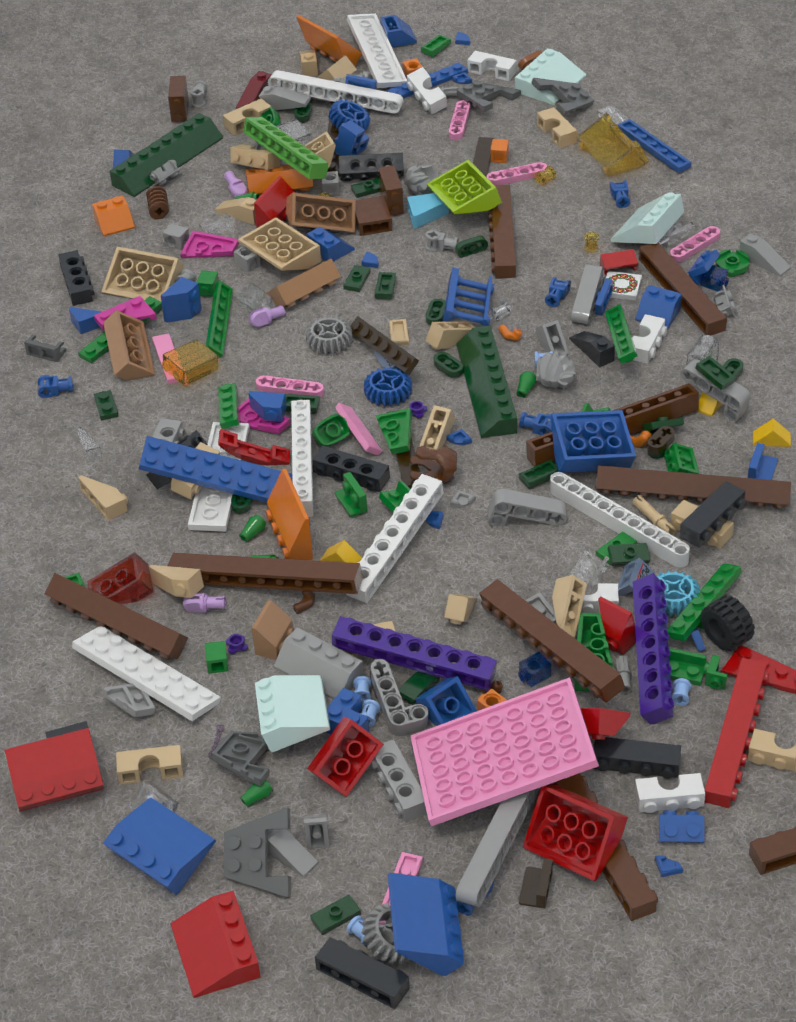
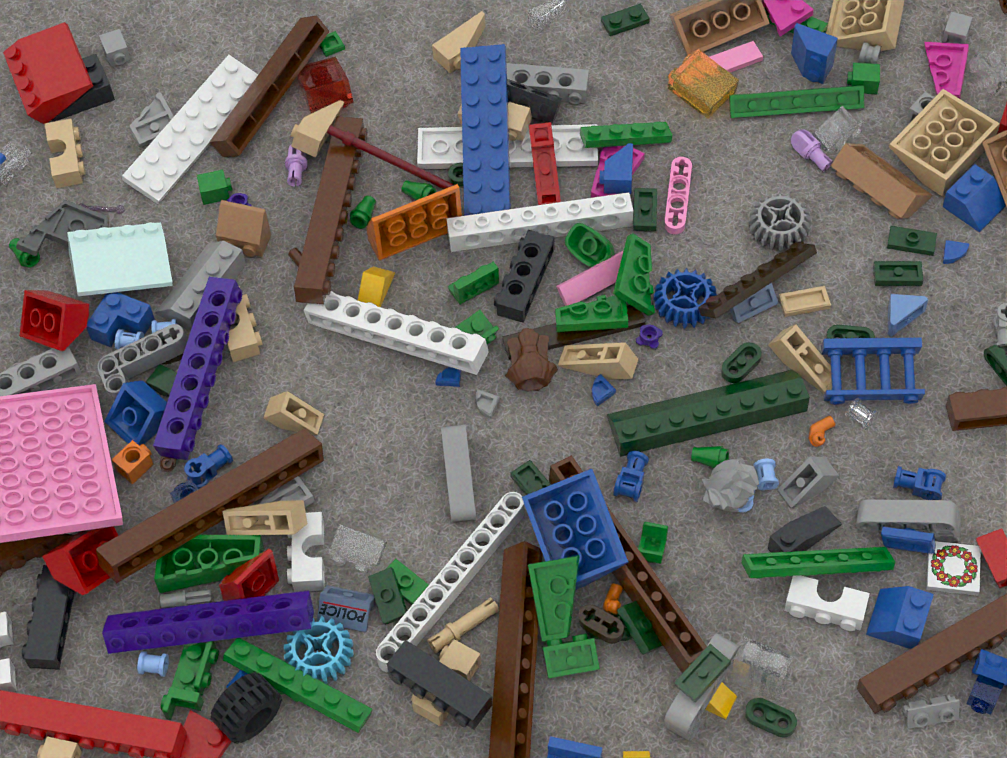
camera: 85 degrees right, 15 degrees up
(32, 728) = (115, 47): none -> light grey brick
(201, 551) = (350, 139): none -> dark red bar
(363, 404) = (633, 275): none -> green wing
(420, 285) = (903, 310): none -> medium blue slope
(505, 660) = (207, 466): none -> blue connector
(641, 454) = (554, 595): none -> green wing

